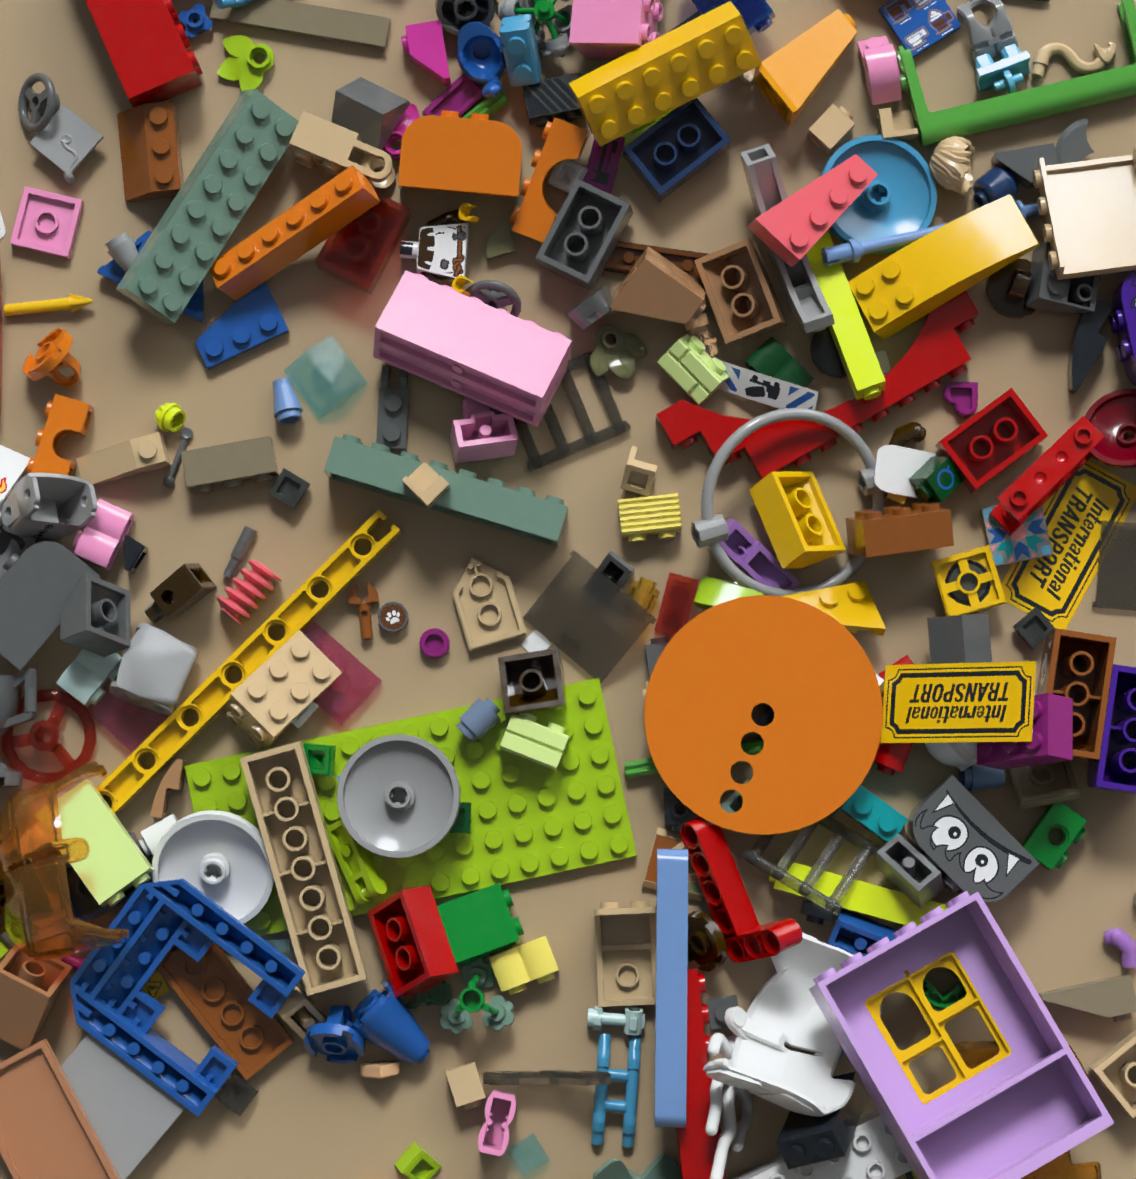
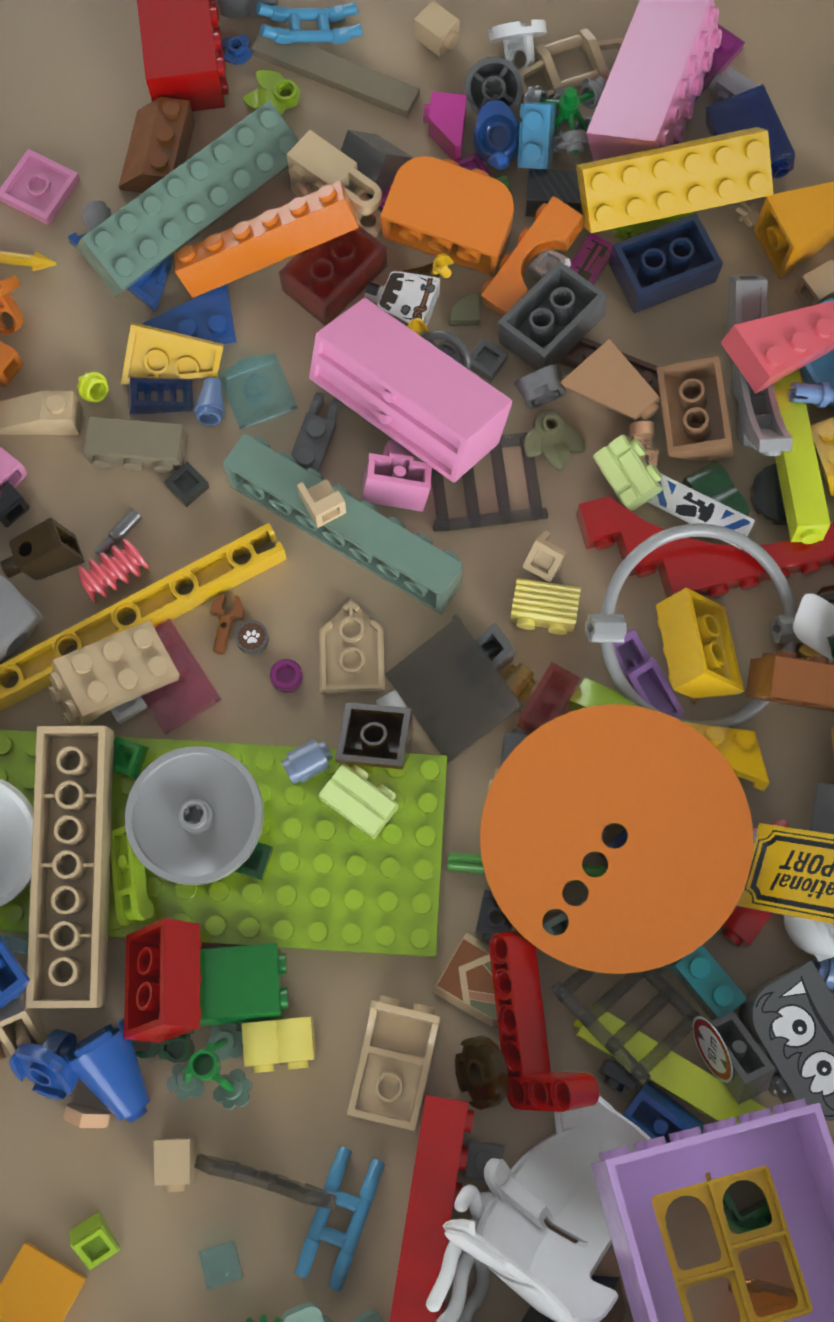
camera: 15 degrees right, 10 degrees down
(43, 104) = (67, 80): dark grey piece -> none
(66, 141) = (81, 120): light grey hat -> none
(186, 434) = (72, 447): dark grey hinge -> none
(210, 414) = (148, 406): none -> clear blue slope
(228, 367) = (169, 355): none -> yellow wing
(495, 1131) = (190, 1227): bright pink brick -> none
(533, 289) = (487, 359): none -> dark grey plate
(632, 1020) = (380, 1141): light aqua bar -> none
(671, 988) = (431, 1121): medium blue beam -> none
(888, 869) = (712, 1049): none -> sticker

